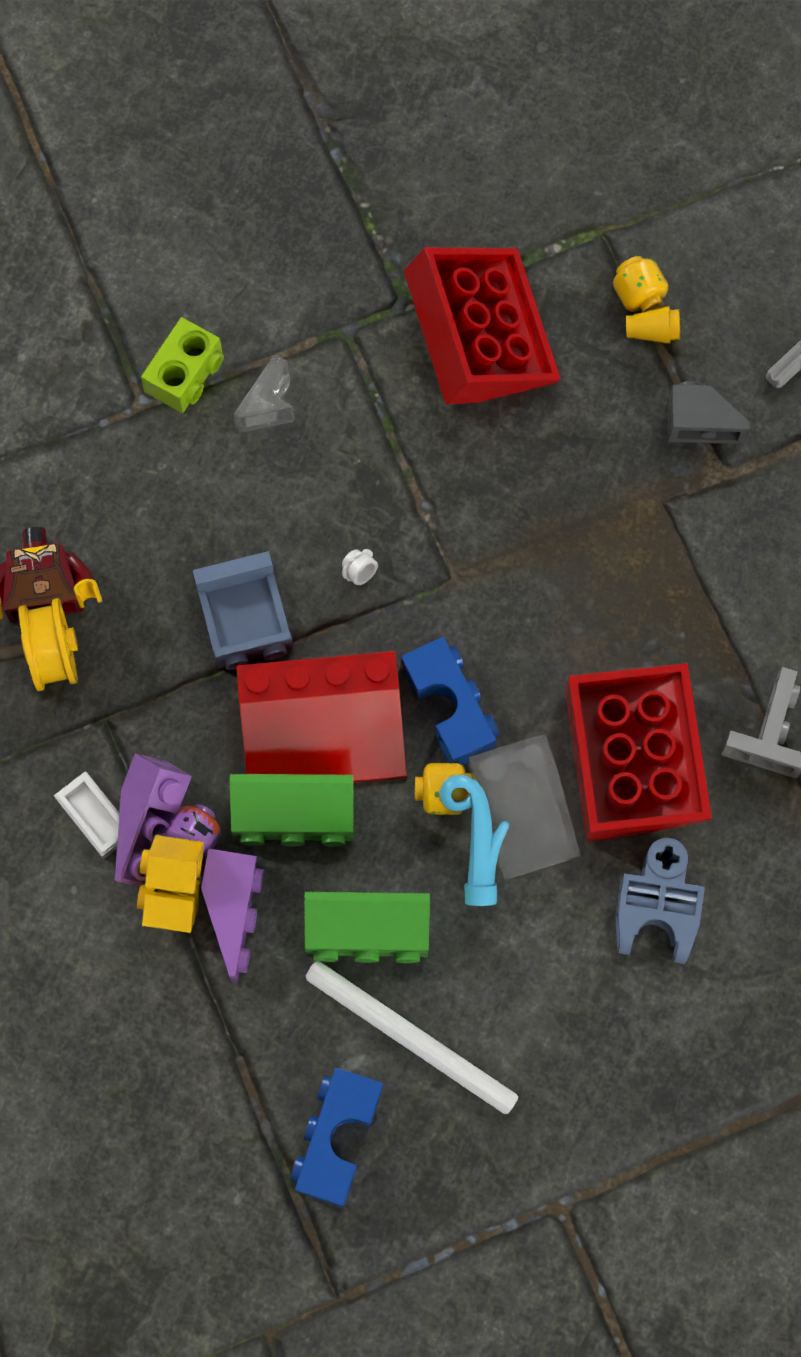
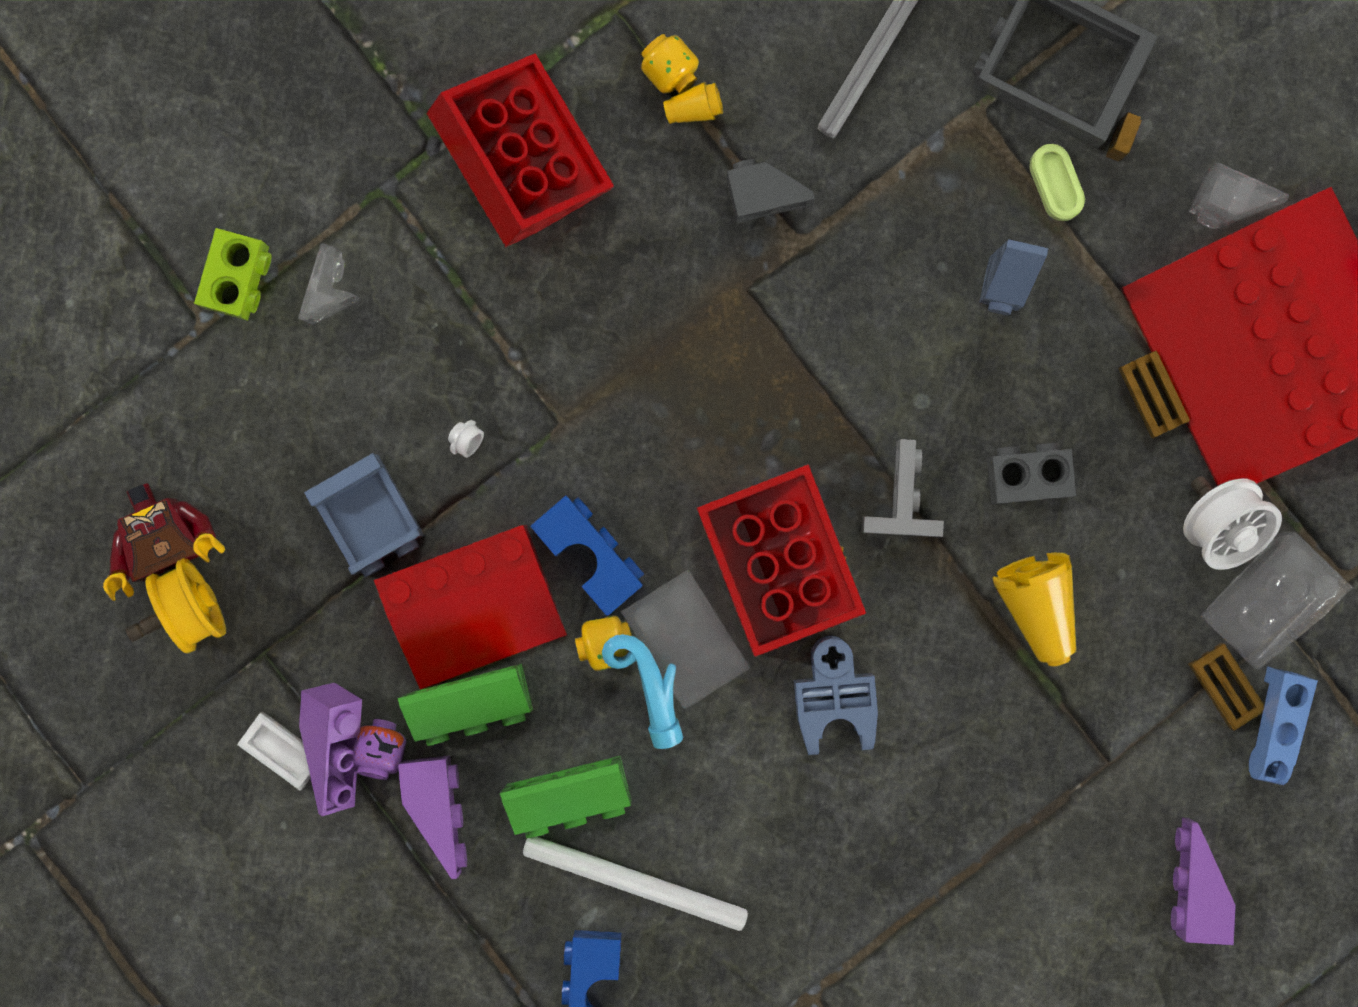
camera: 15 degrees left, 15 degrees up
(171, 884) = (372, 806): yellow piece -> none

